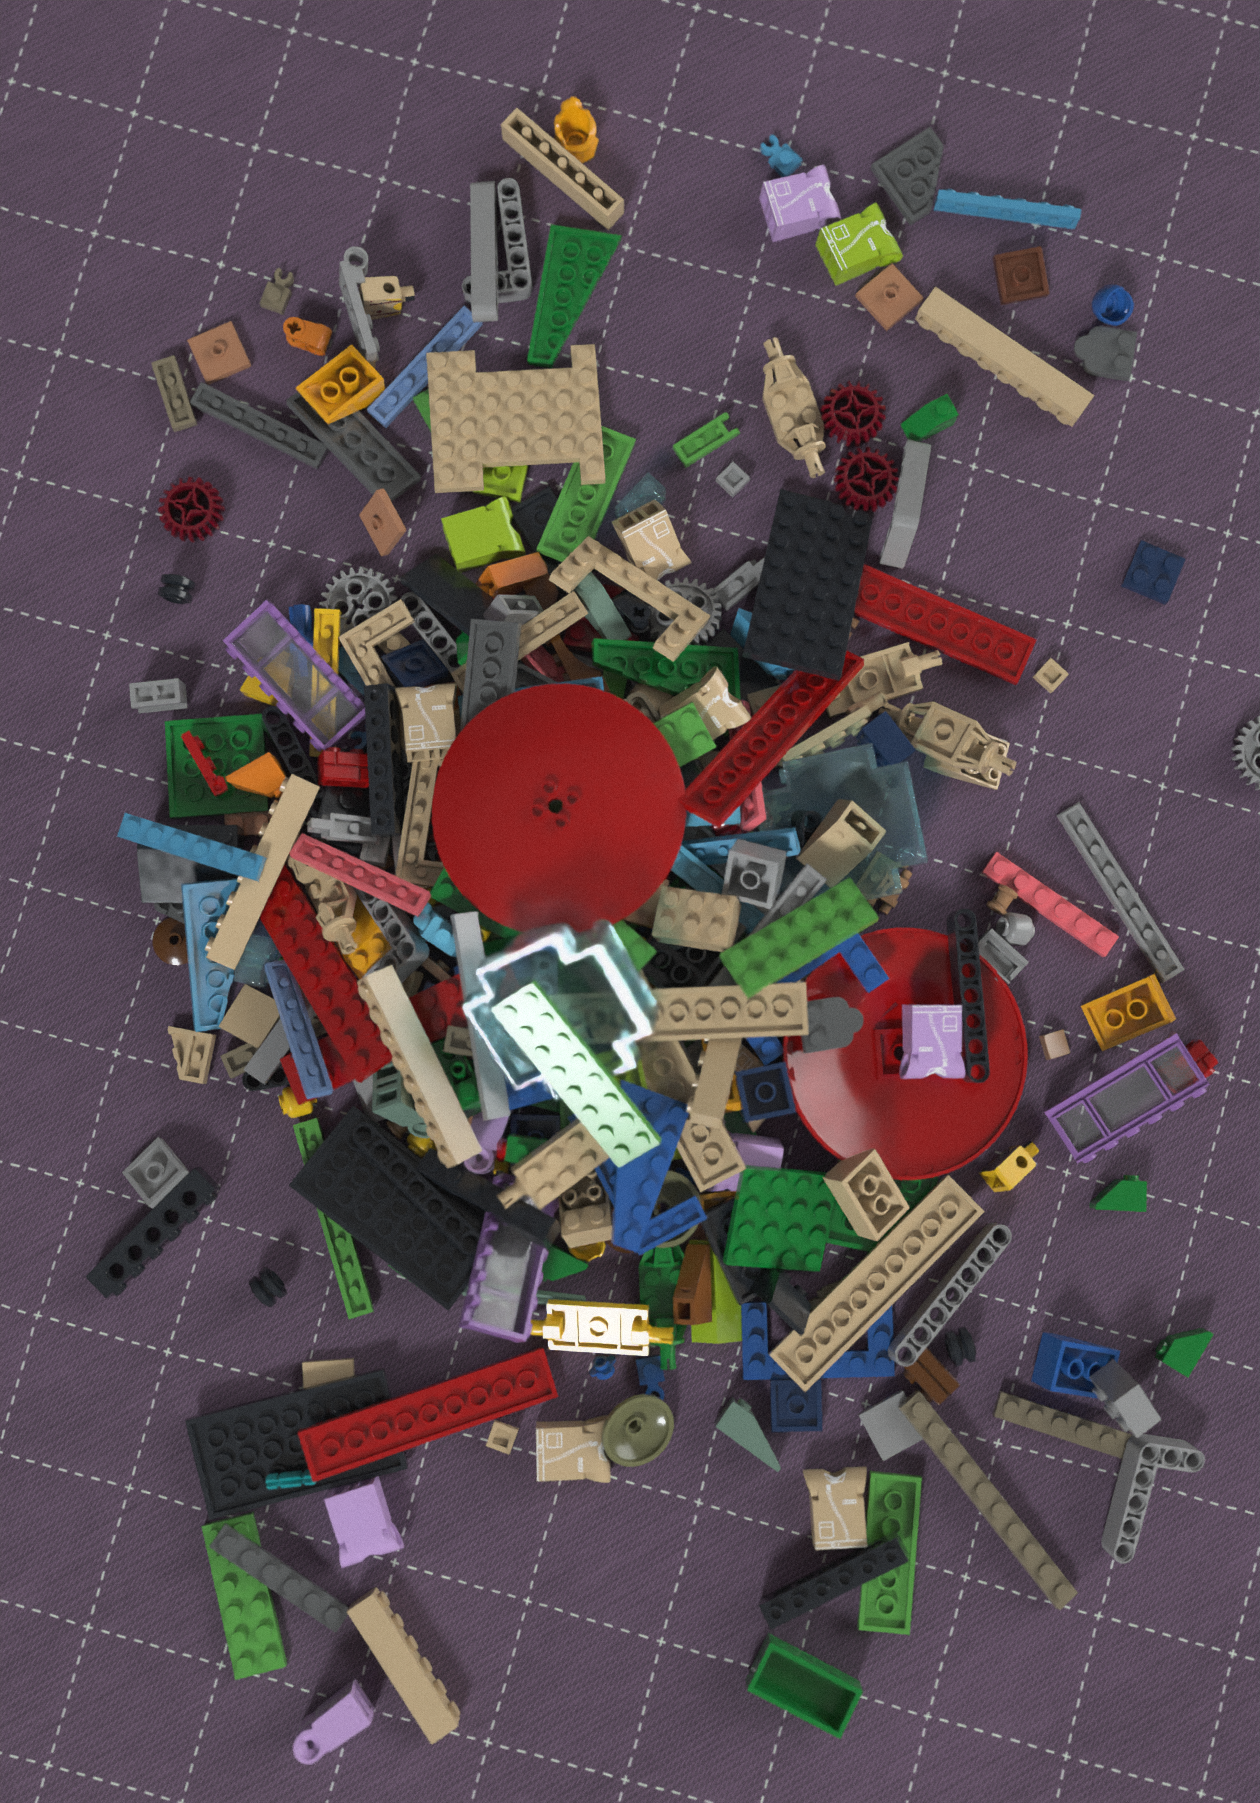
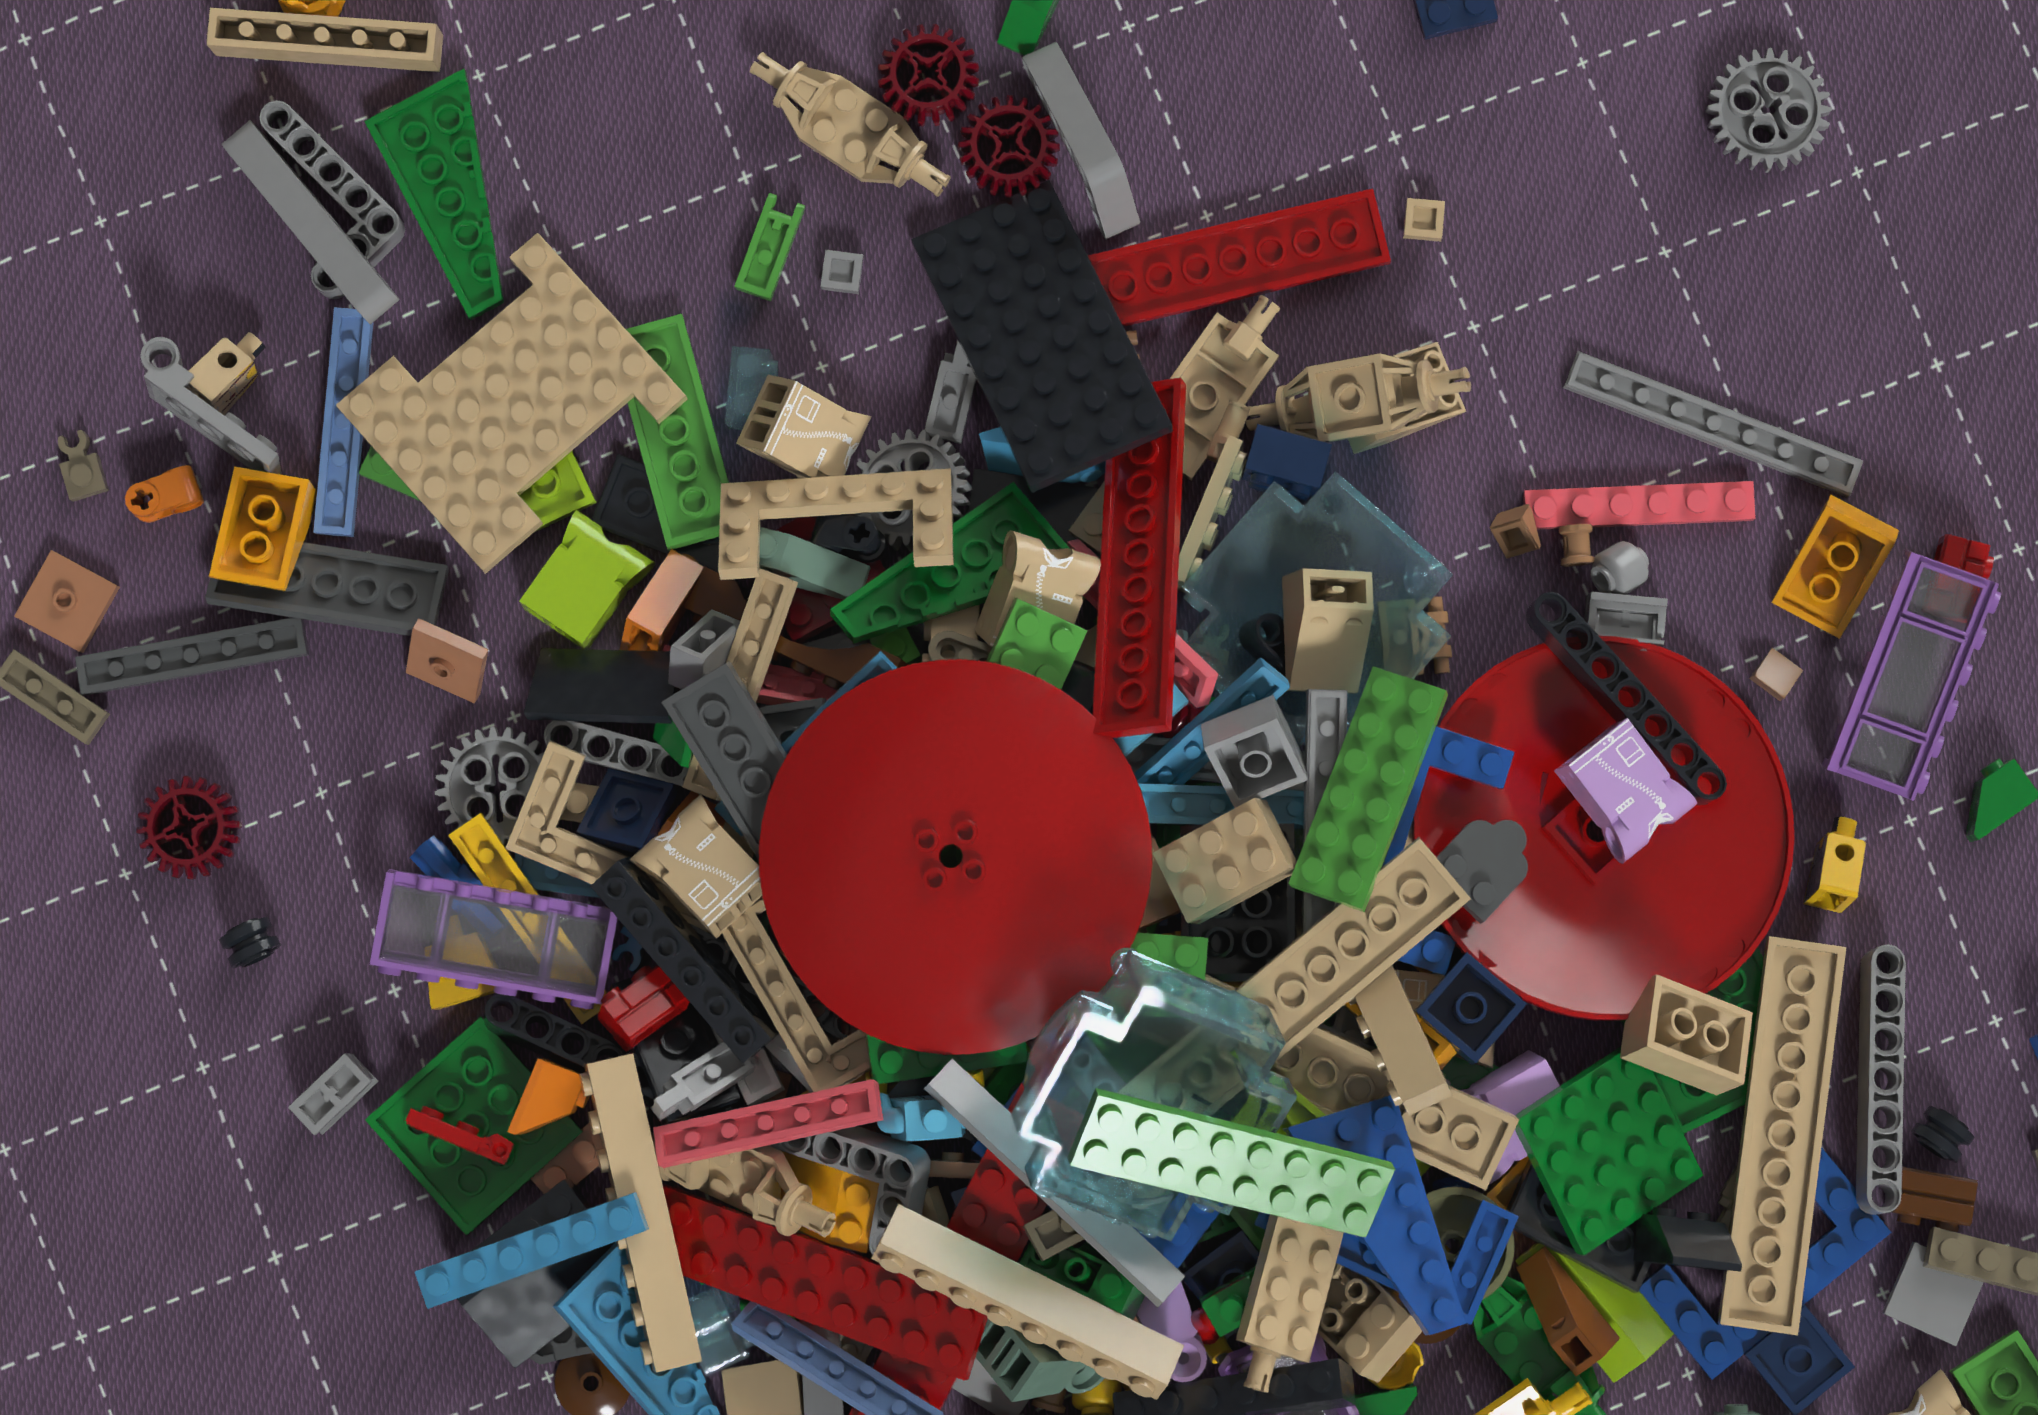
camera: 30 degrees left, 0 degrees up
(976, 869) = (1516, 531): none -> medium nougat slope

